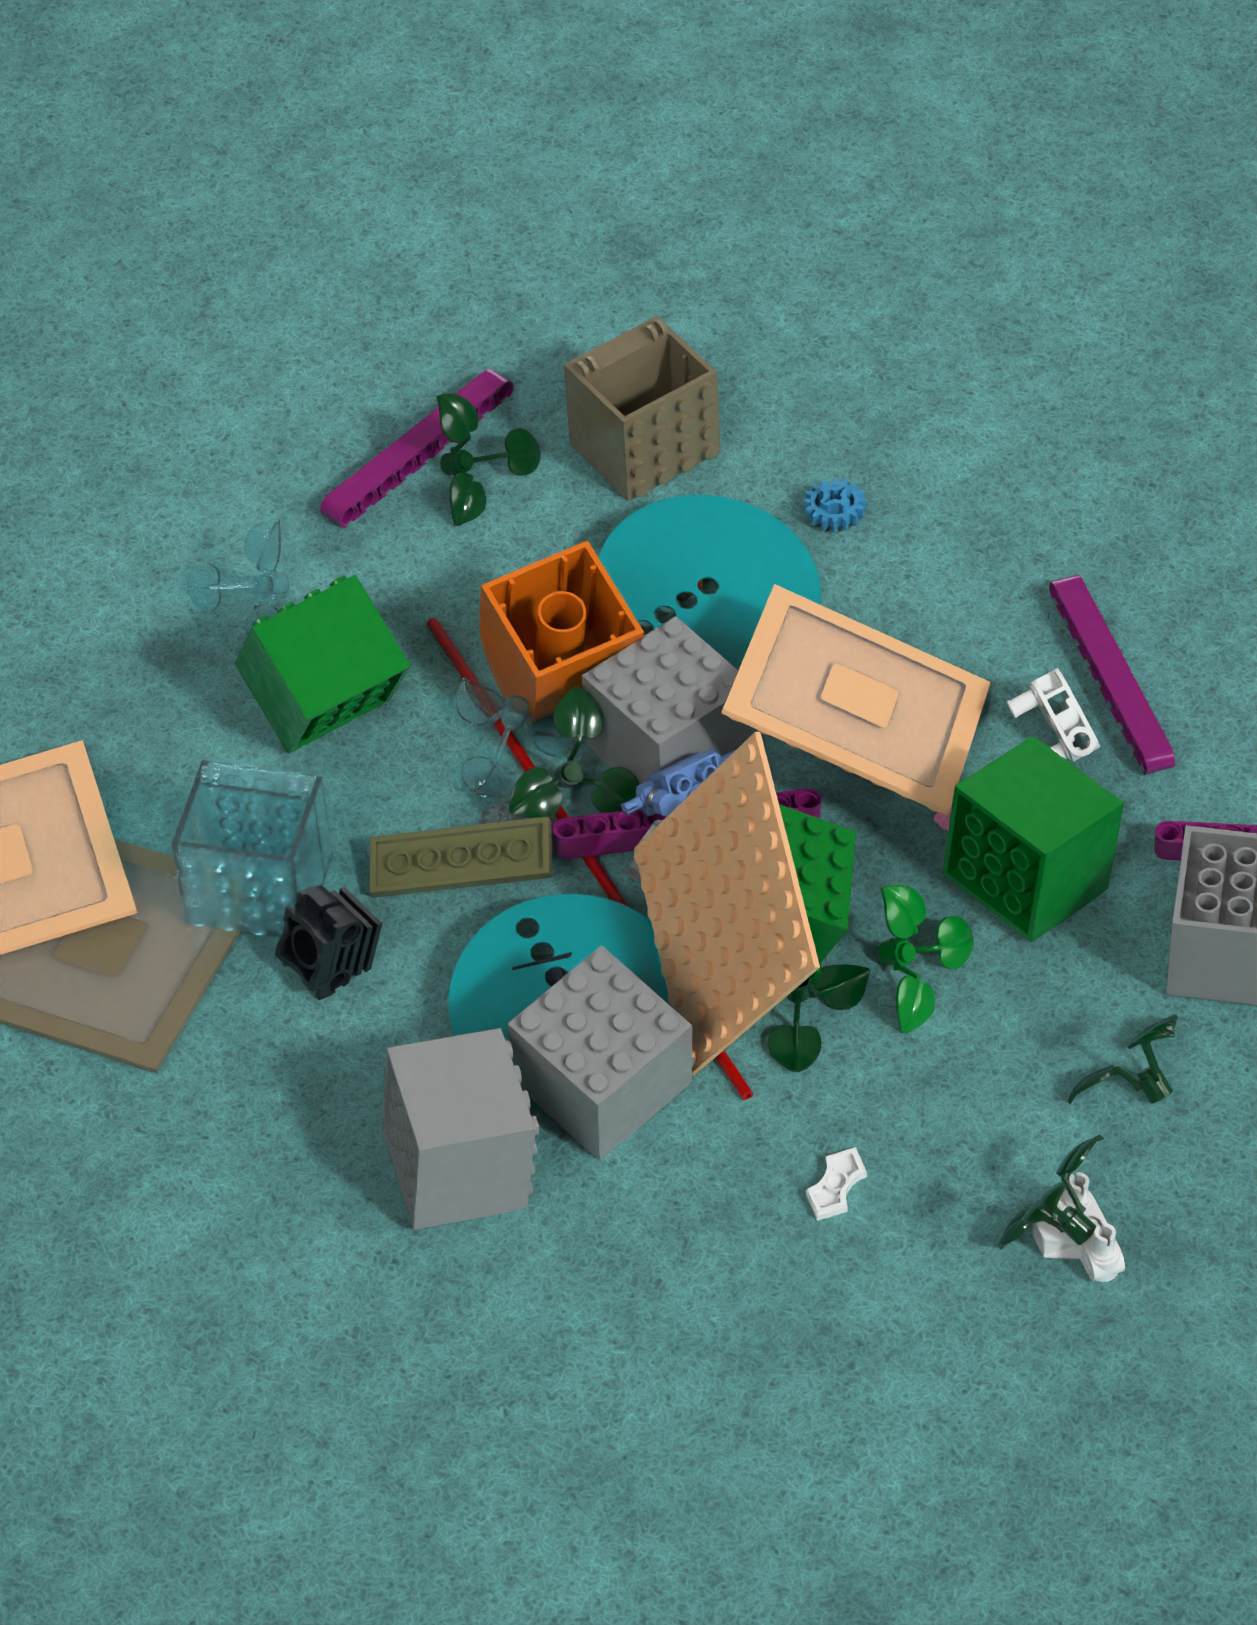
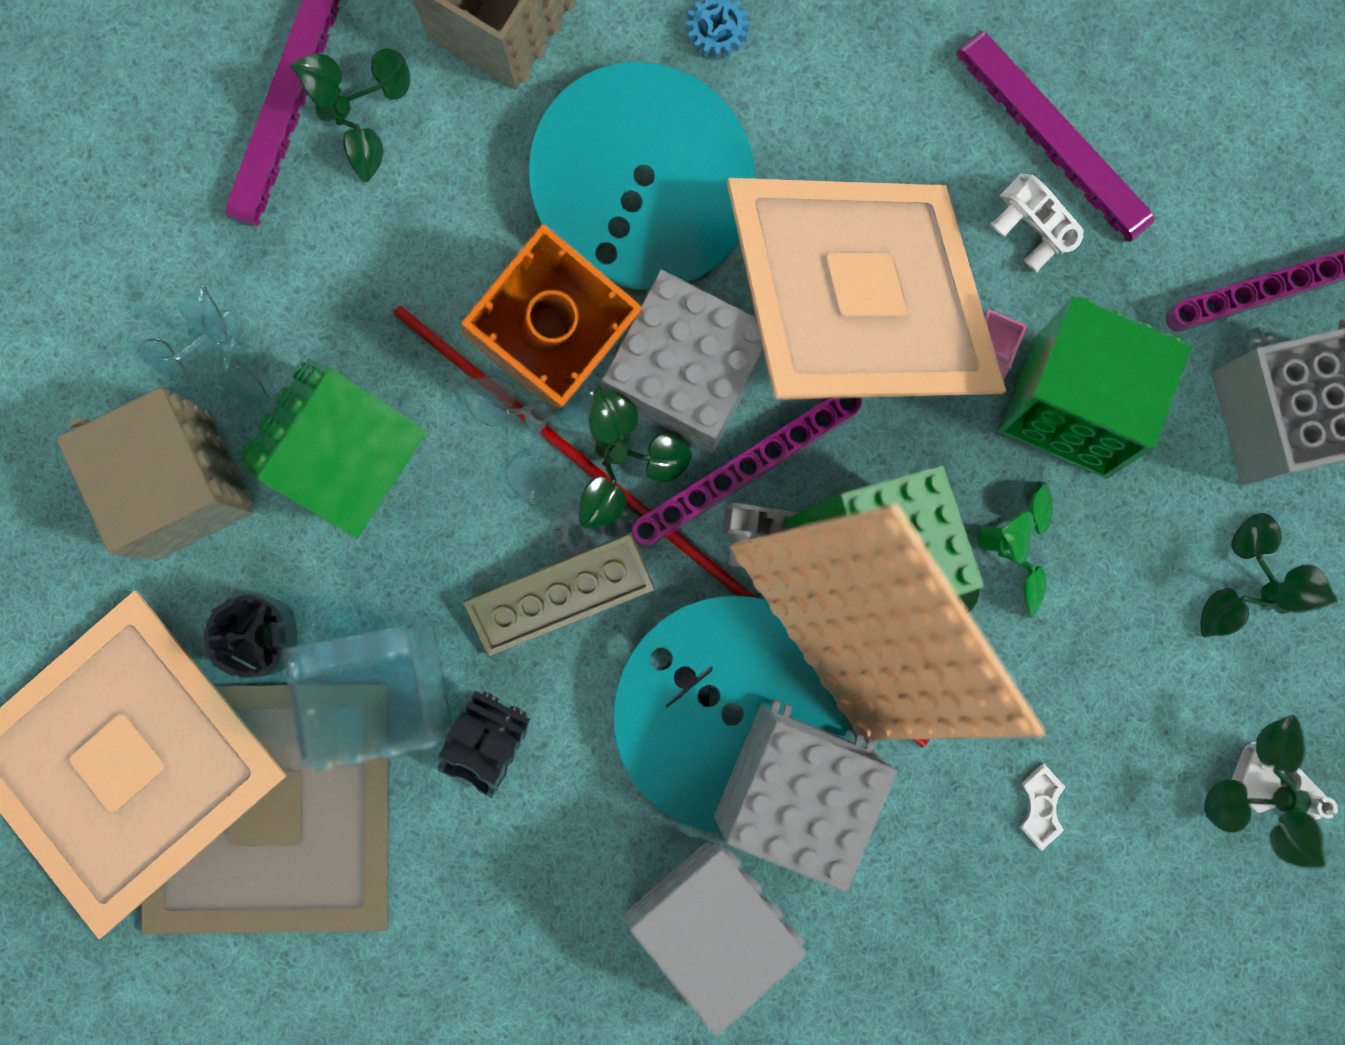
camera: 25 degrees left, 35 degrees up
(159, 649) = (155, 475): none -> dark tan piece
(161, 786) = (237, 631): none -> black piece
(674, 783) = (744, 449): medium blue piece -> none

